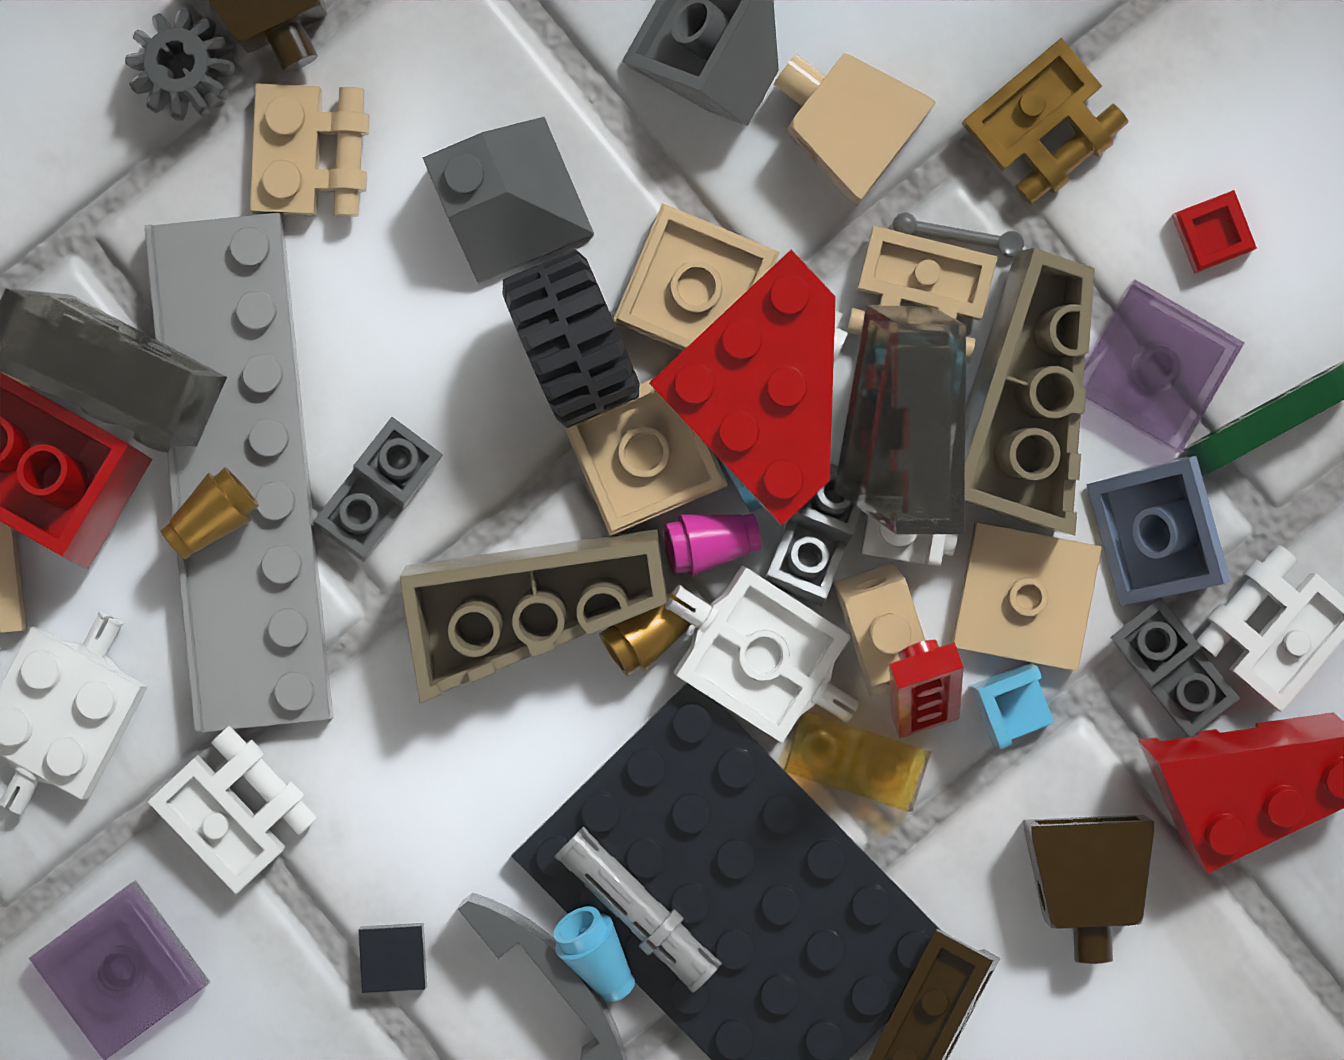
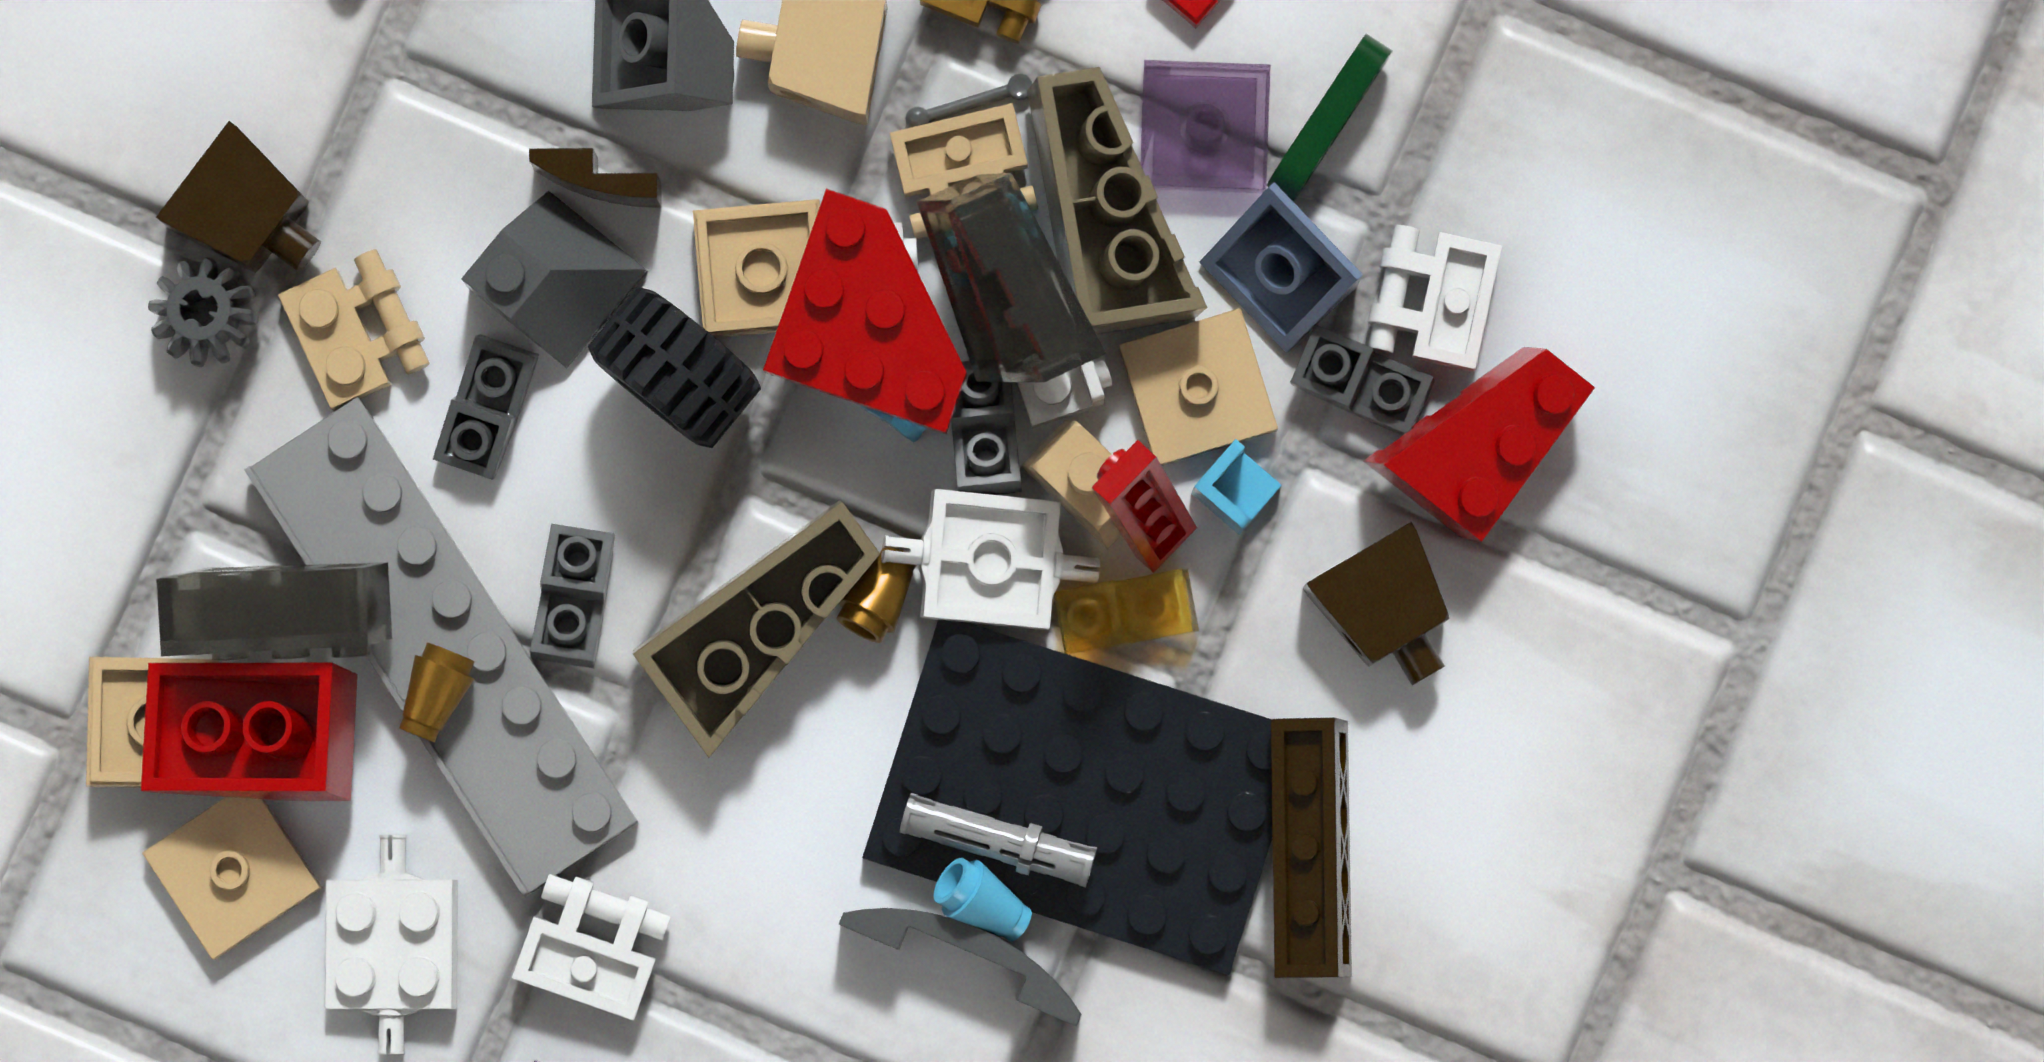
camera: 30 degrees left, 5 degrees down
(388, 281) = (485, 406): none -> dark grey slope
(392, 957) = (804, 1007): black tile -> none
(579, 115) = (578, 172): none -> dark brown slope
(643, 460) = (794, 445): tan plate -> none
(708, 541) = (891, 485): dark pink cone -> none

